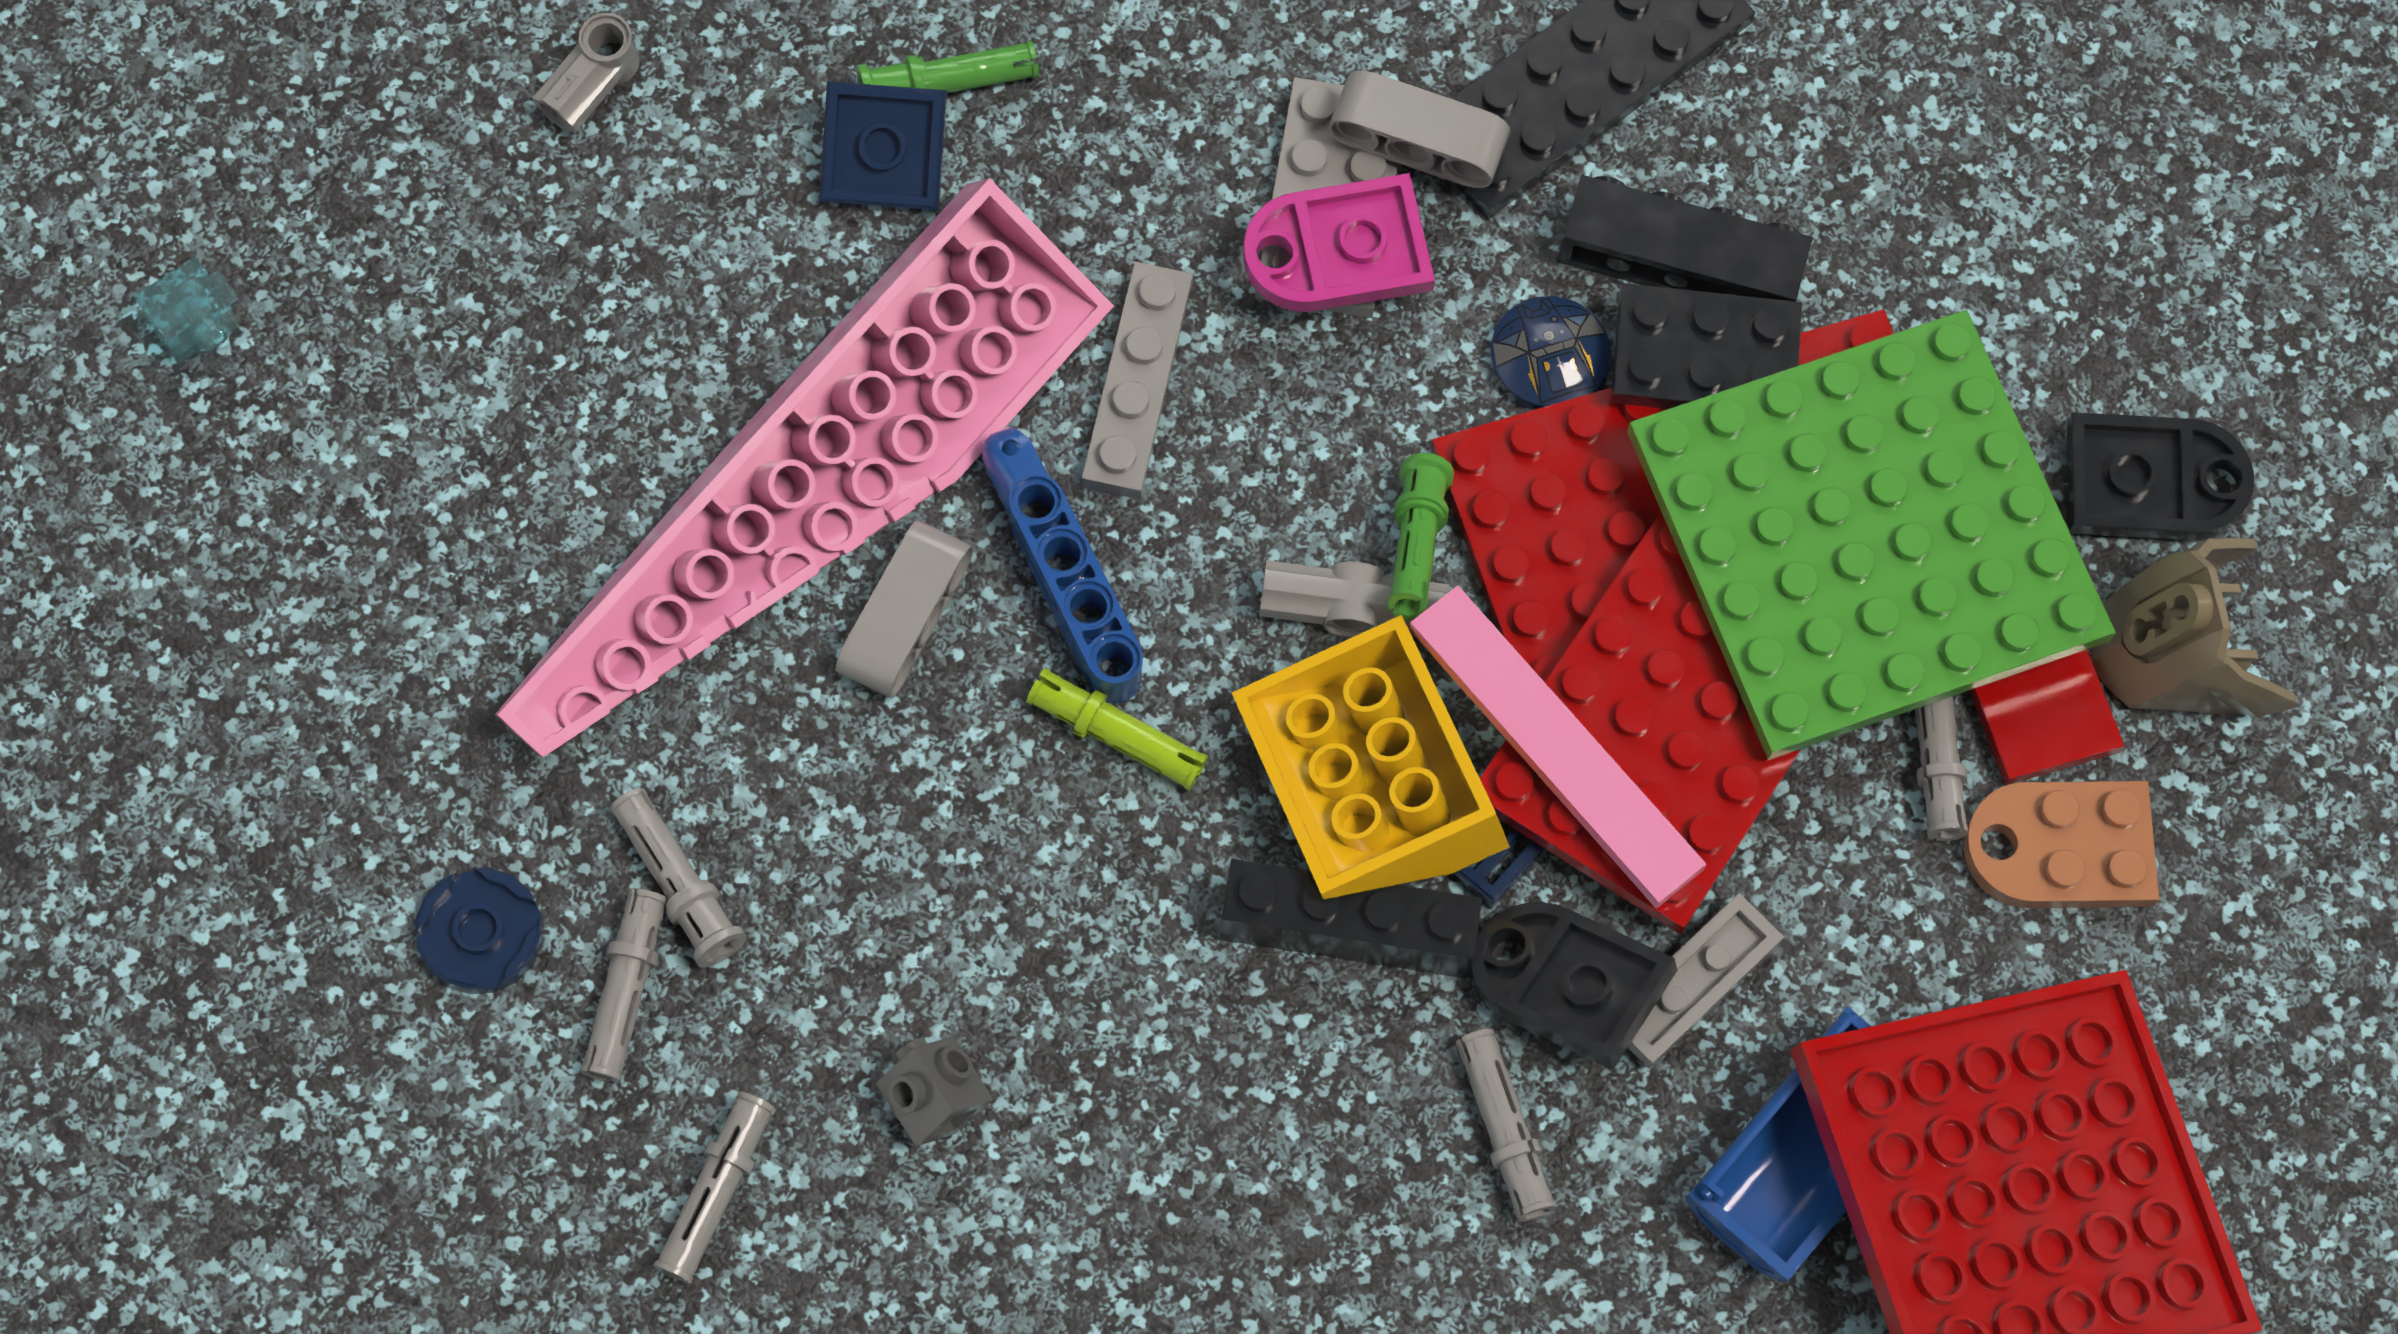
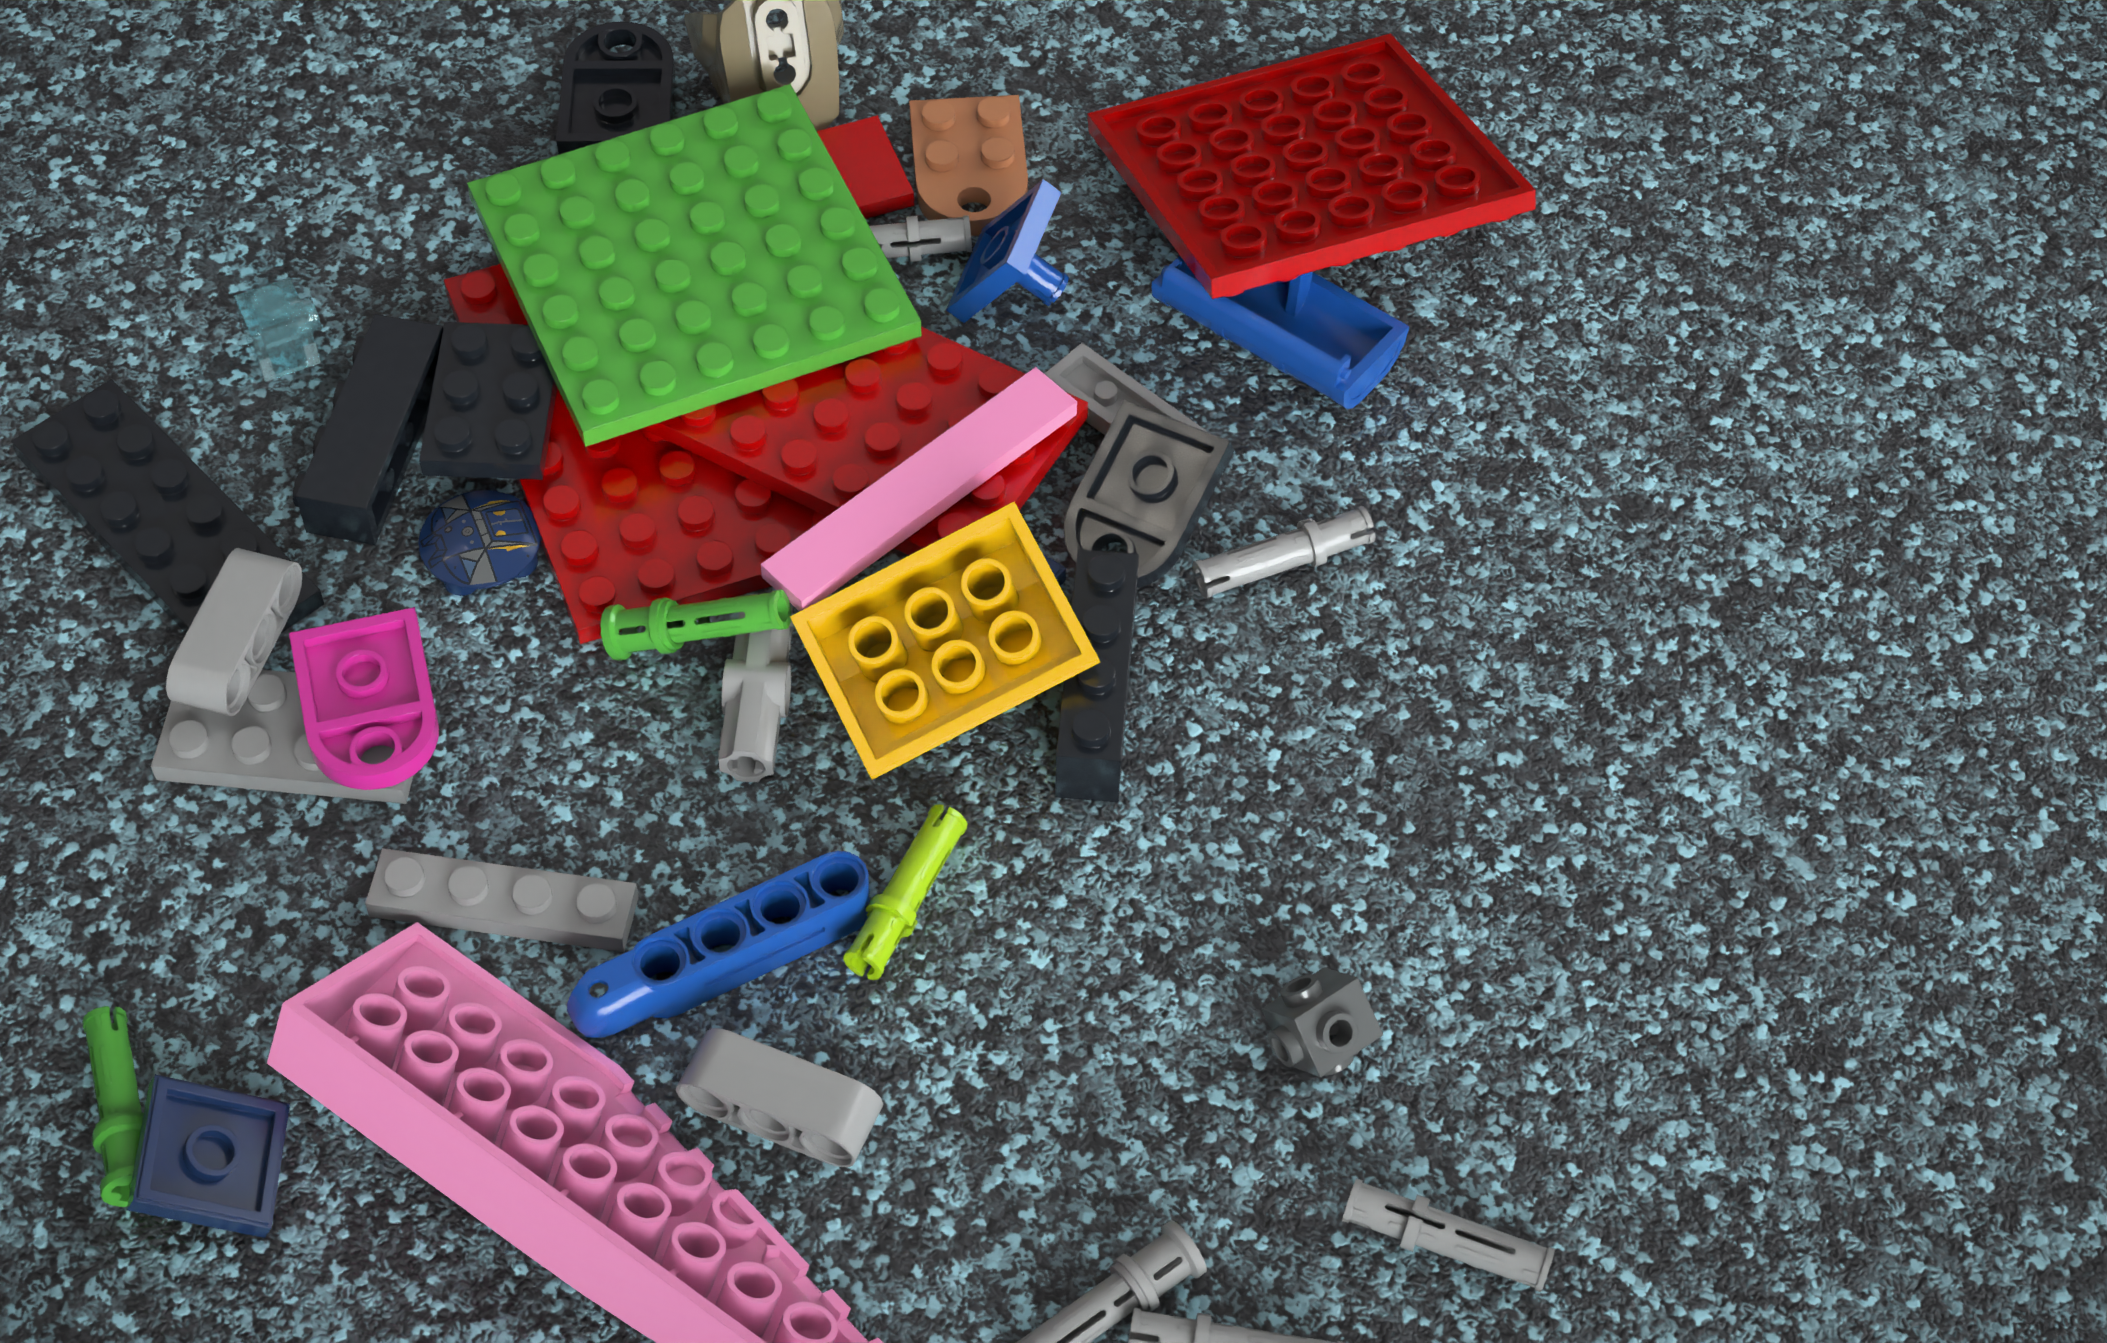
camera: 90 degrees left, 15 degrees down
(1809, 154) = (279, 328): none -> clear light blue brick
(1895, 863) = (1008, 256): none -> blue tile

